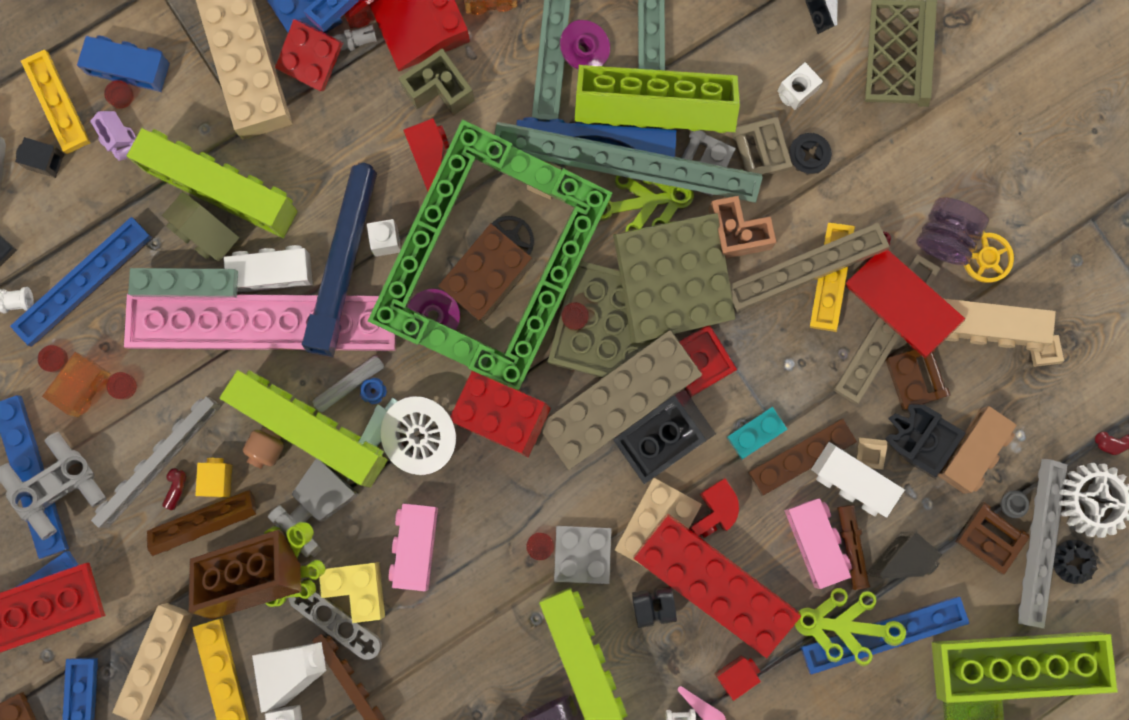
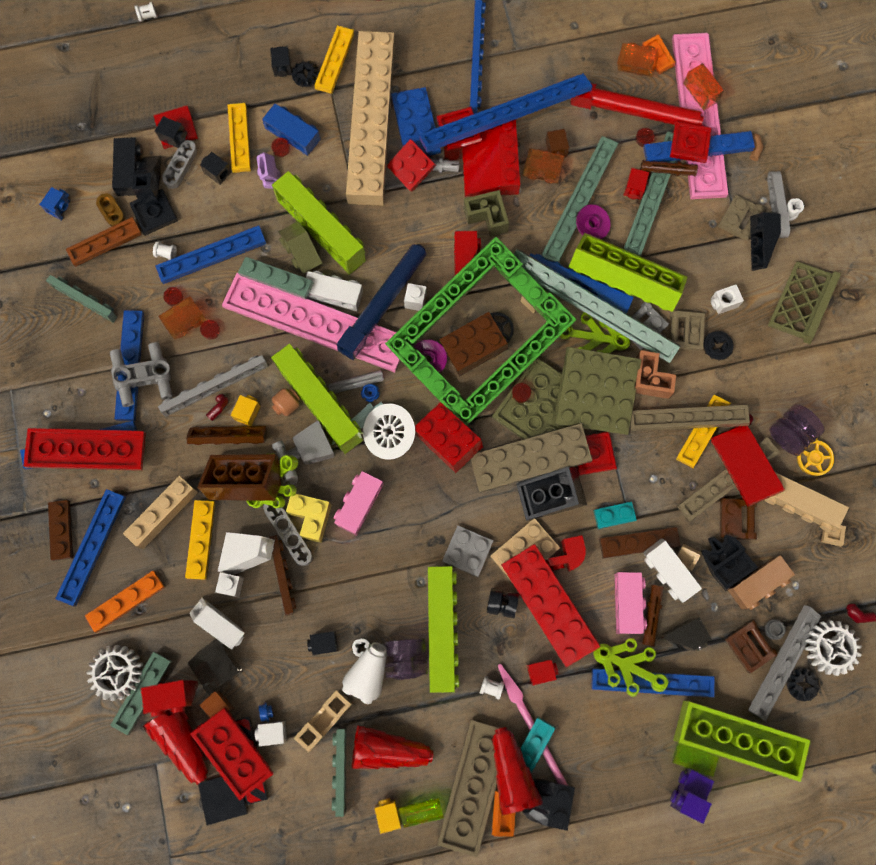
camera: 20 degrees right, 5 degrees down
(540, 546) = (441, 535): clear red tile -> none

